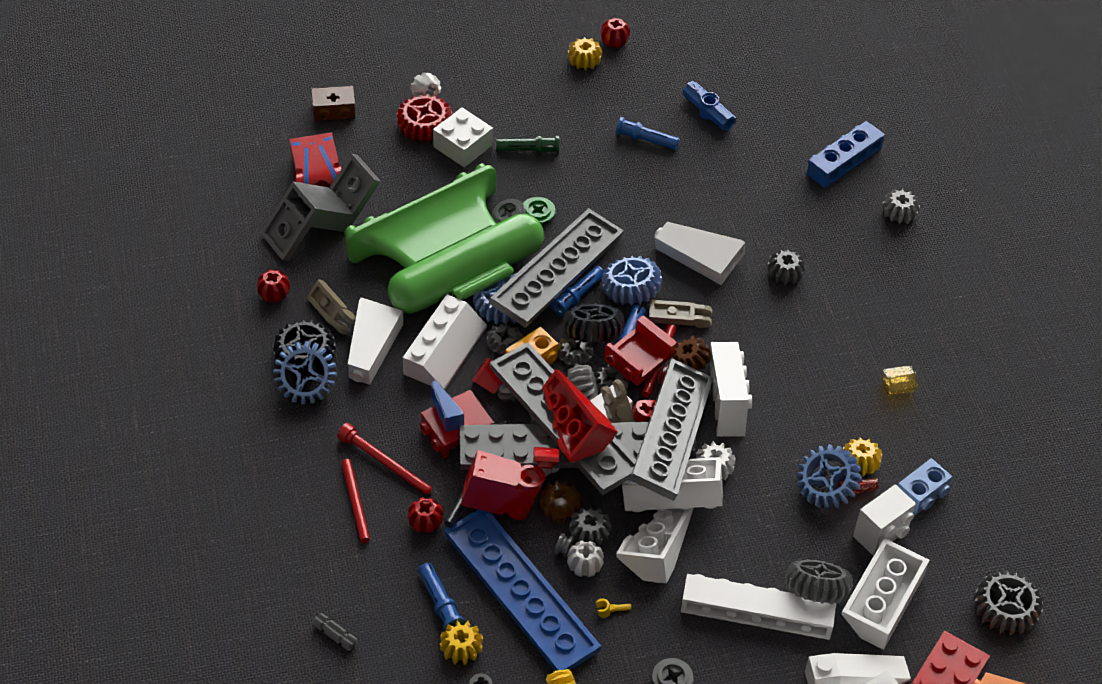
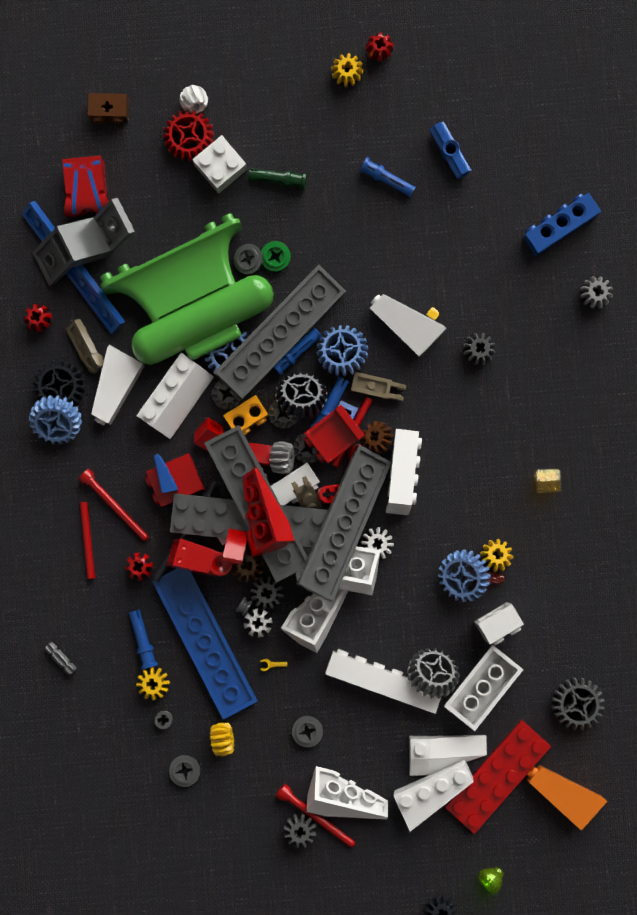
camera: 10 degrees right, 35 degrees up
(317, 245) = (78, 274): none -> blue plate
(921, 483) = (537, 584): medium blue brick -> none

